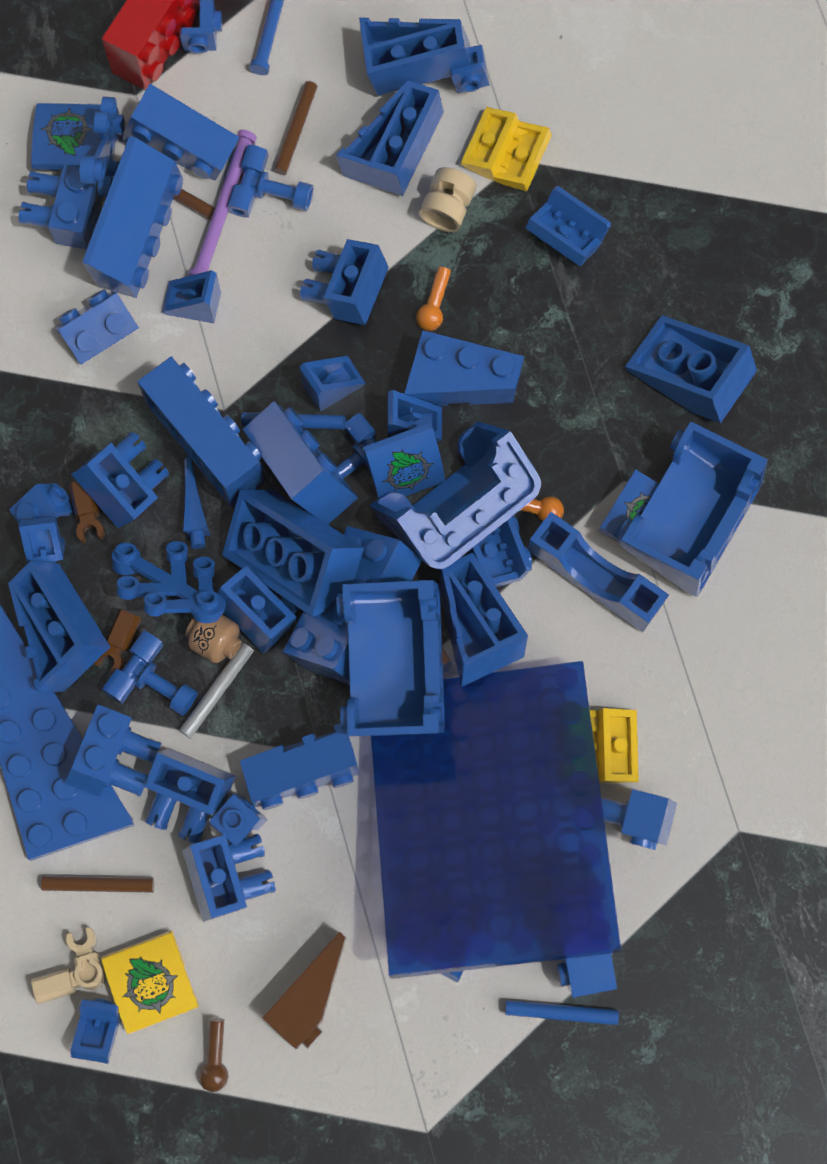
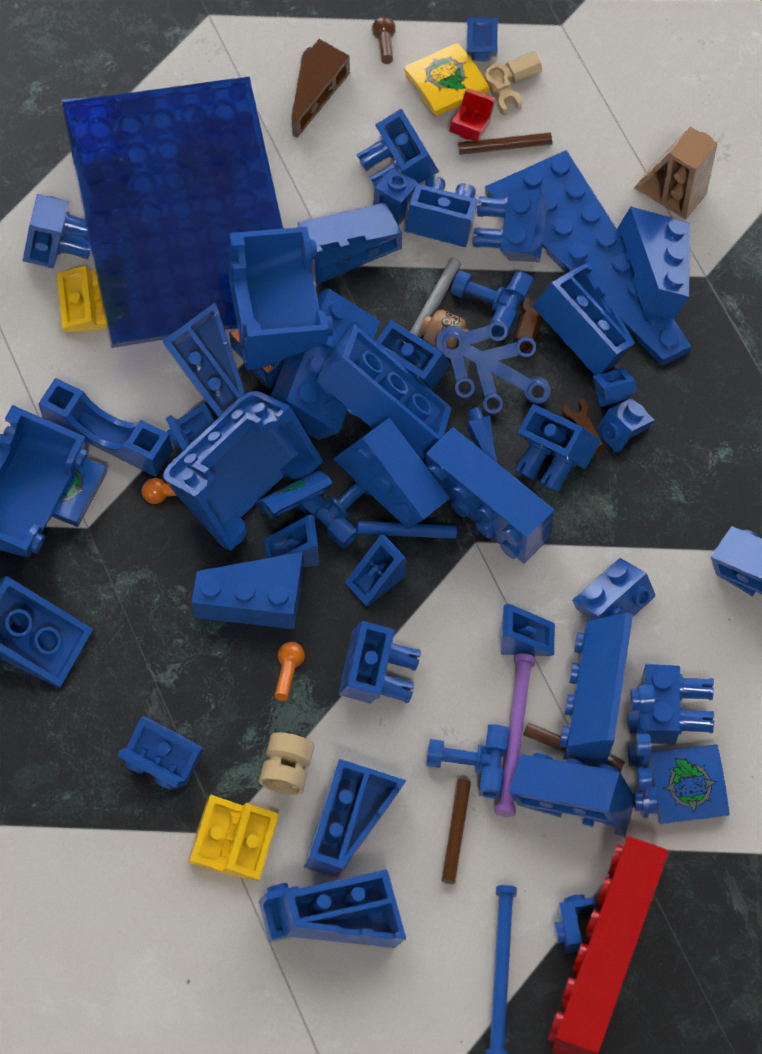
camera: 175 degrees right, 10 degrees down
(129, 918) = (473, 115): none -> red bracket

